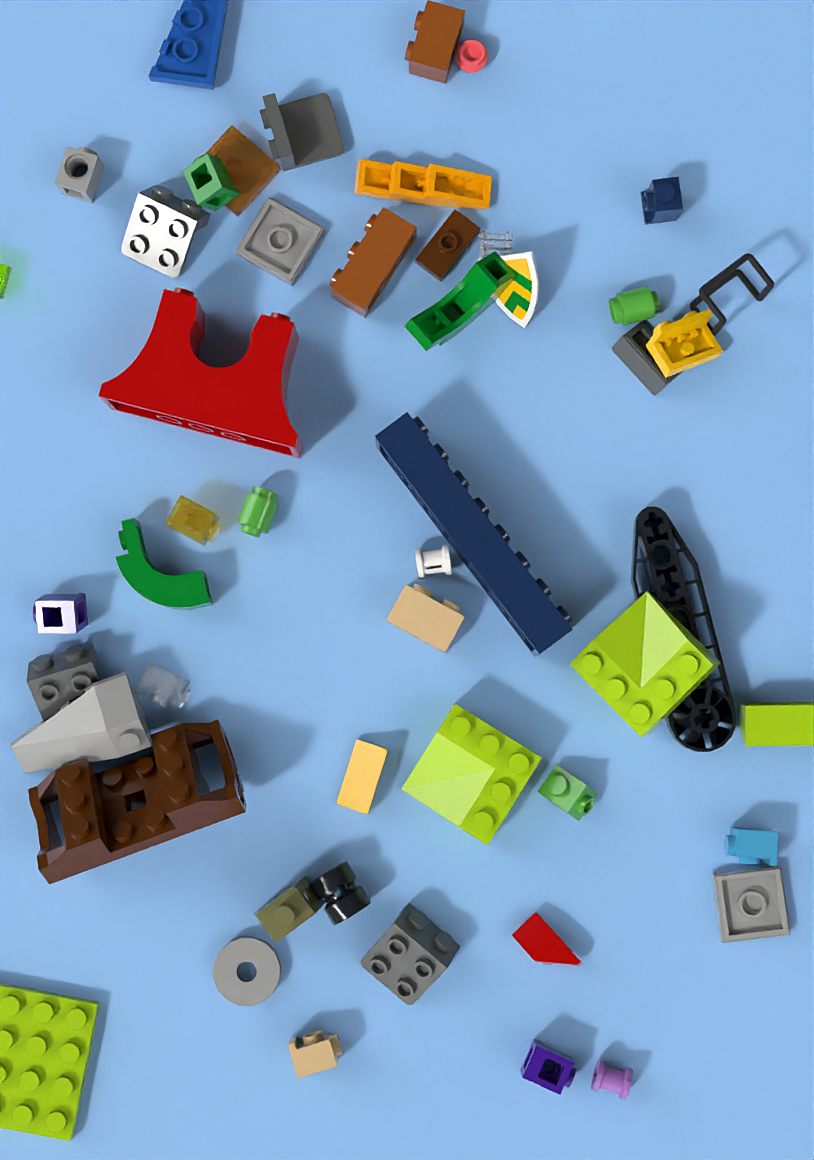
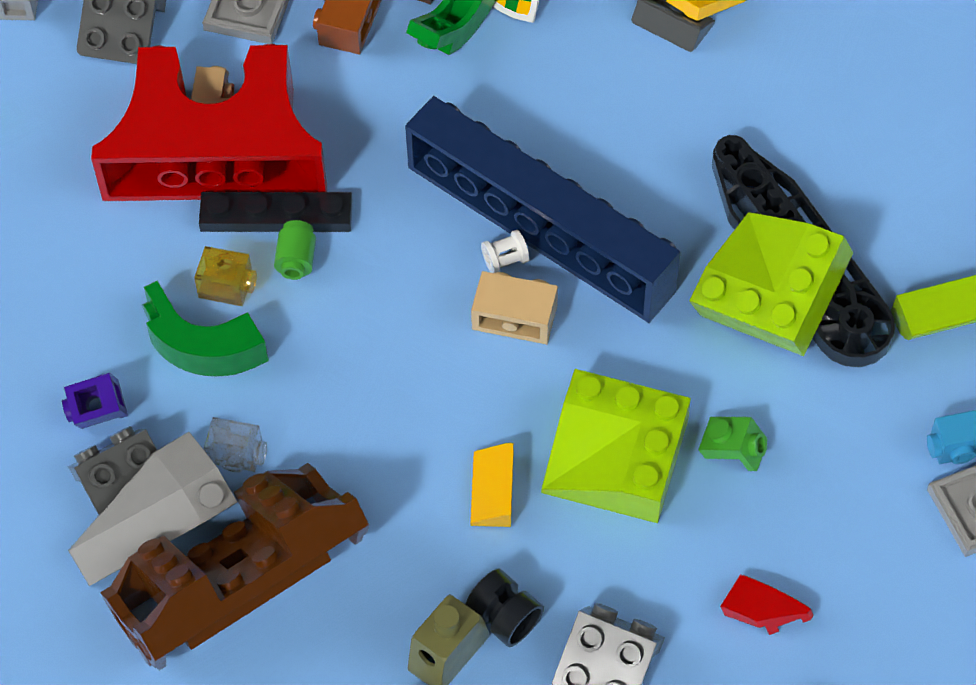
camera: 20 degrees left, 25 degrees down
(225, 333) = (211, 85): none -> tan brick
(252, 464) = (273, 209): none -> black plate

